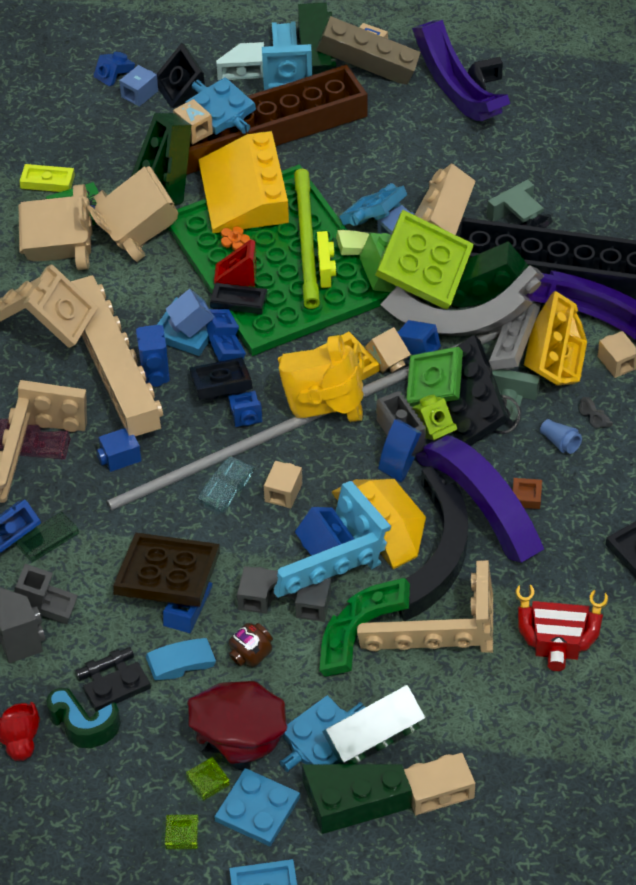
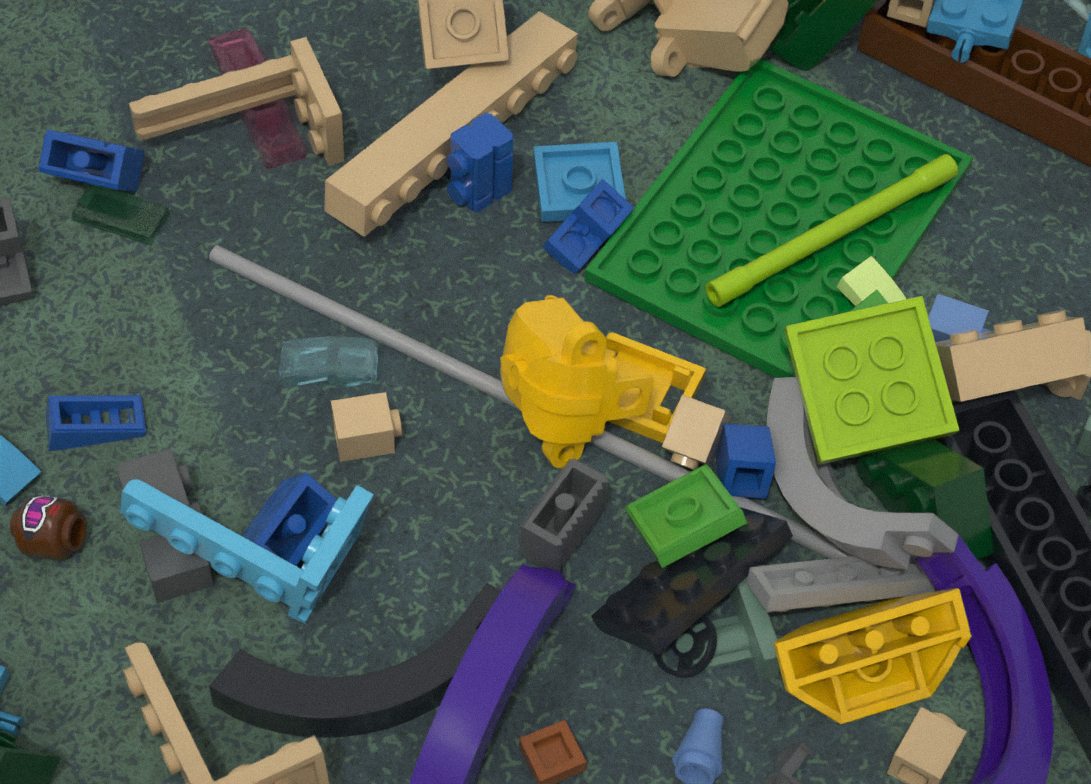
camera: 55 degrees right, 5 degrees up
(118, 450) = (303, 213): blue brick -> none
(166, 569) = (124, 365): dark brown plate -> none
(189, 313) = (577, 162): medium blue brick -> none
(221, 378) = (504, 260): black plate -> none
(235, 237) = (768, 150): orange plant -> none
(238, 267) = (711, 181): red slope -> none
(238, 298) = (661, 209): black tile -> none
(244, 184) = (874, 114): yellow slope -> none
(245, 408) = (474, 316): blue bracket -> none
(325, 252) = (802, 267): neon yellow plate -> none
(342, 630) = (184, 636): green plate -> none
(374, 205) = (959, 277): dark azure plate -> none
(398, 450) = (505, 532): blue slope -> none
(400, 512) = (383, 582): yellow wedge -> none
(426, 410) = (621, 542): lime brick -> none

